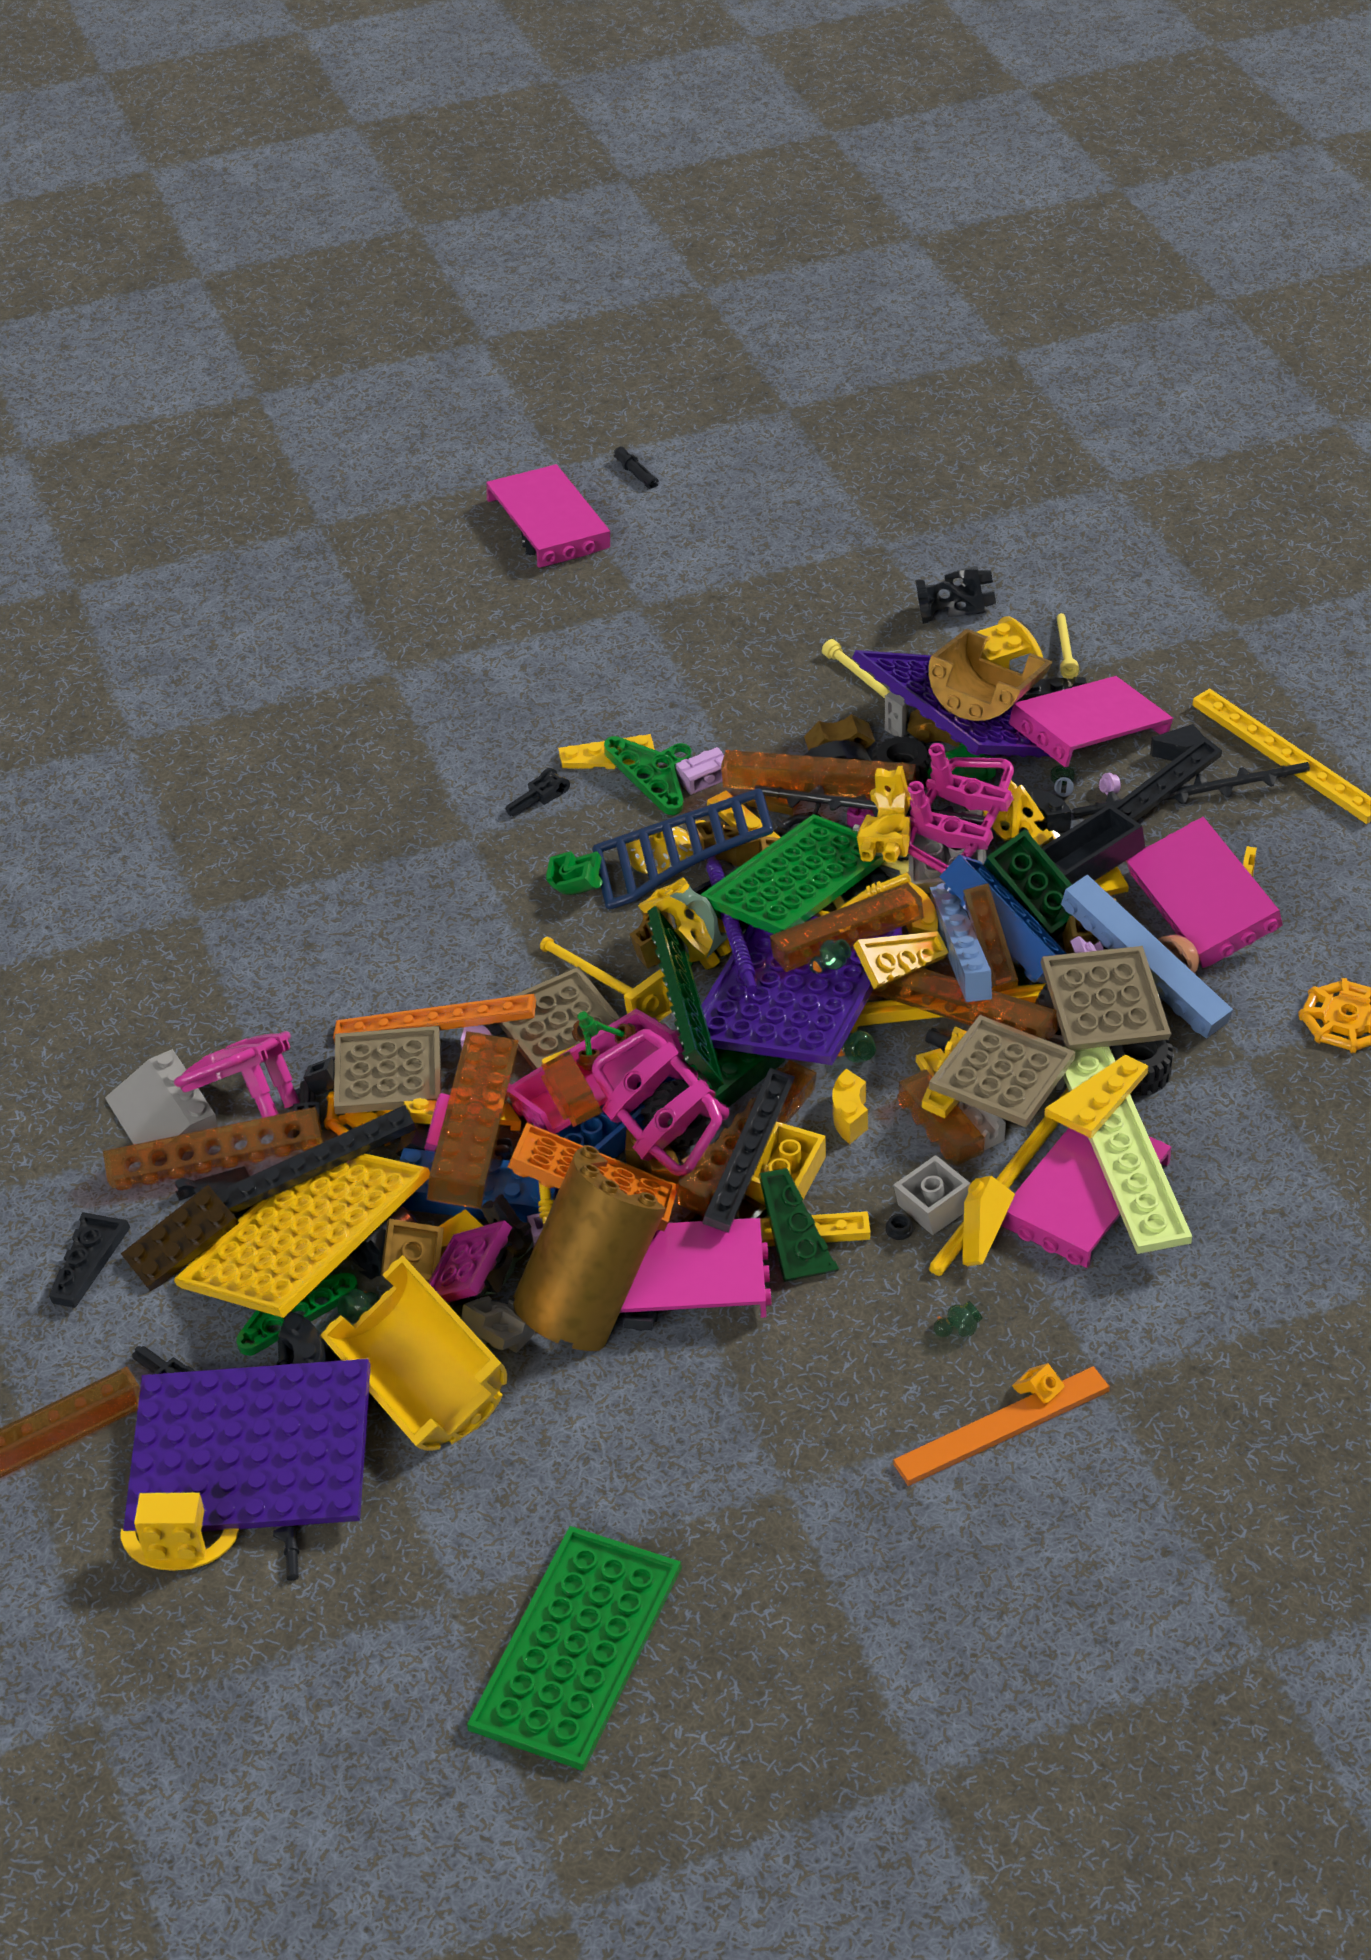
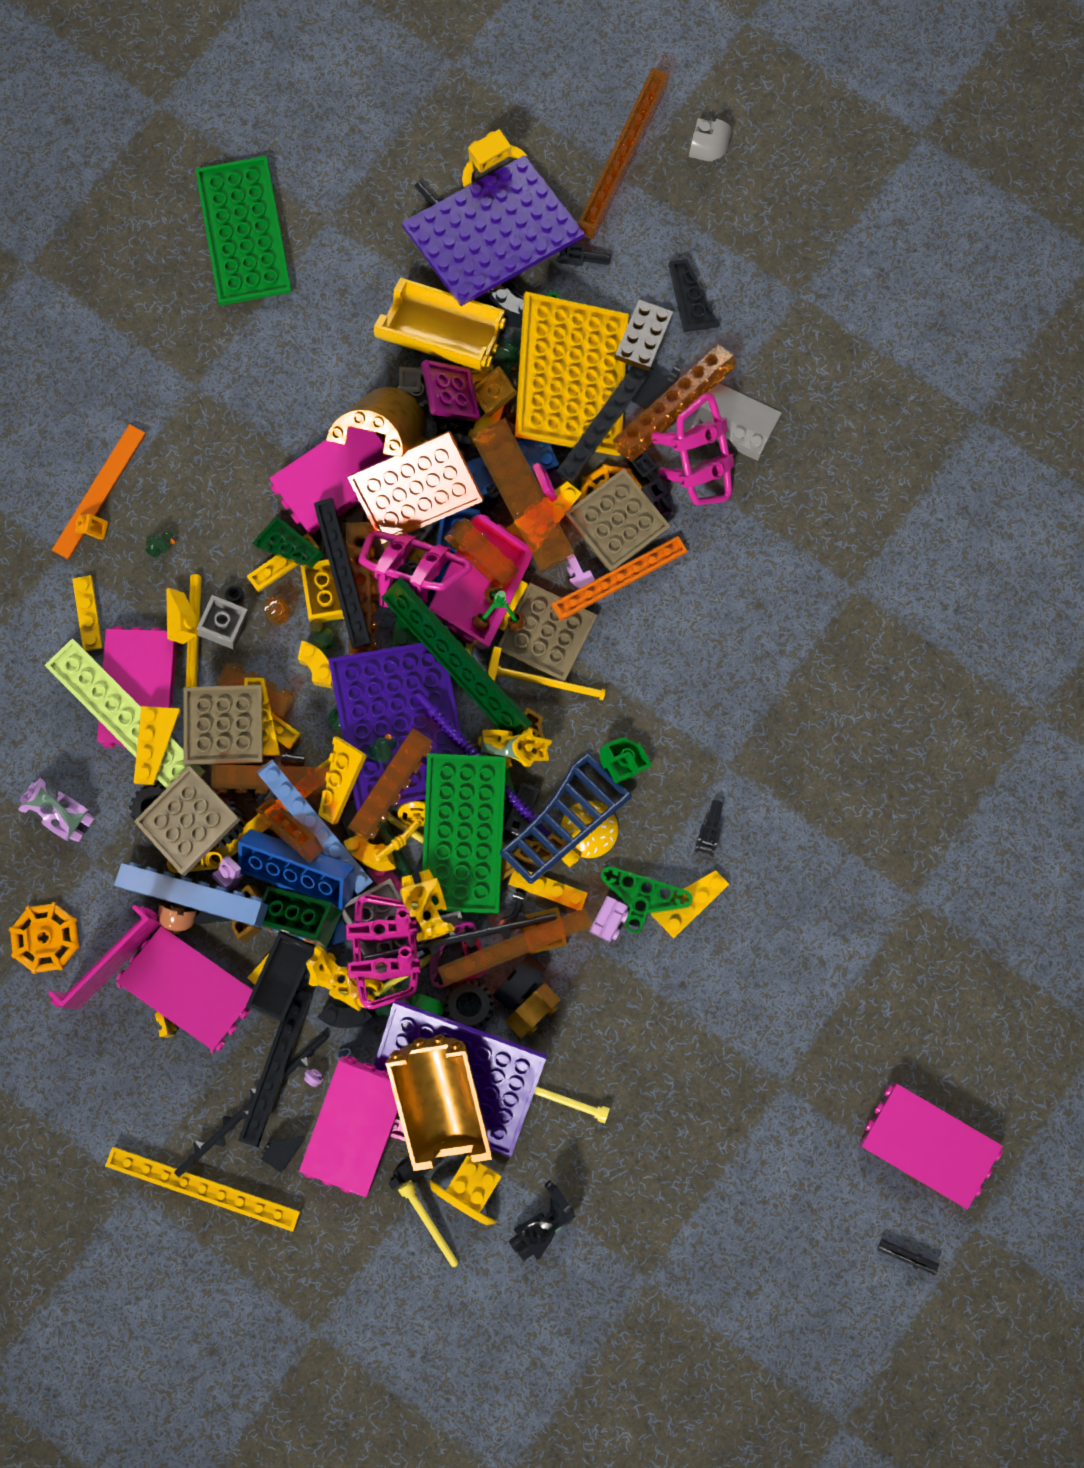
camera: 145 degrees right, 35 degrees up
(824, 1124) = (323, 635): none -> clear green animal
(857, 1178) = (277, 610): none -> clear orange head
(1103, 1298) = (87, 613): none -> yellow plate
(1266, 1100) = (37, 797): none -> lavender hips
(1278, 934) = (110, 962): none -> dark pink panel

